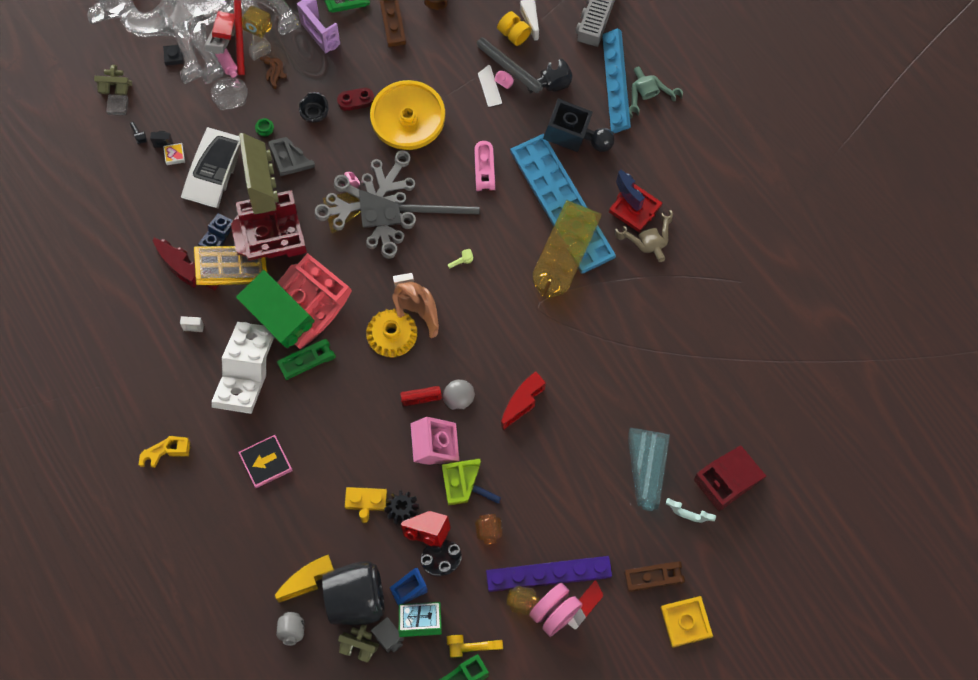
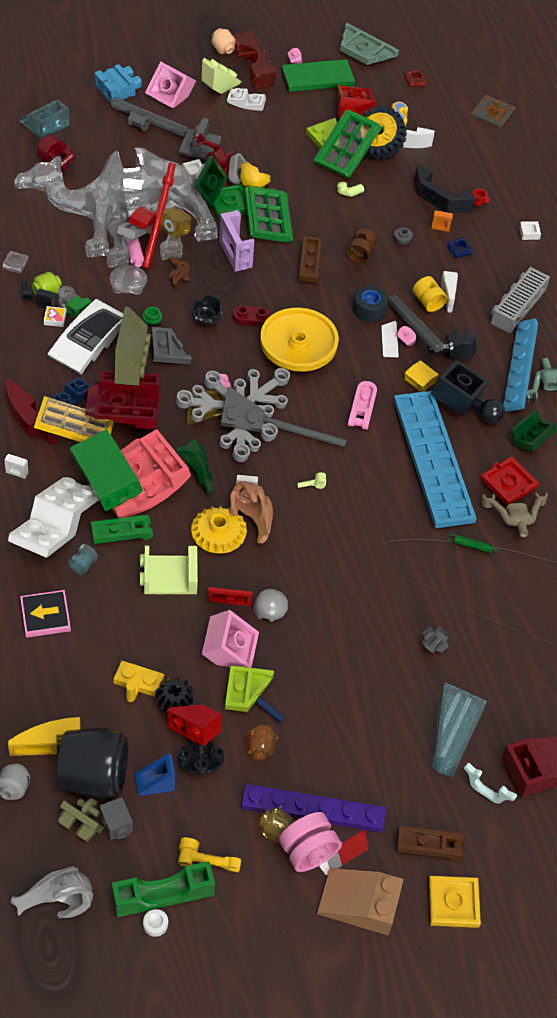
camera: 10 degrees right, 15 degrees down
(104, 82) = (19, 237): olive hips -> none
(155, 122) = (46, 281): none -> lime head
(172, 55) = (83, 234): black plate -> none
(185, 135) = (72, 302): none -> leg
(281, 400) = (85, 556): none -> clear light blue wheel
(349, 266) = (195, 456): none -> dark green animal
(361, 389) = (169, 573): none -> yellowish green panel
(420, 619) = (156, 811): tile -> none
(461, 54) = (370, 303): none -> black wheel
(523, 399) = (337, 627): red slope -> none
(528, 119) = (421, 376): none -> yellow piece
(565, 248) = (424, 498): clear yellow plate -> none
(610, 386) = (435, 639): none -> dark grey gear
(610, 643) = (361, 898): none -> medium nougat slope
(619, 279) = (471, 543): none -> green piece
(626, 186) = (506, 462): dark blue slope -> none
(644, 150) = (532, 431): none -> dark green bracket

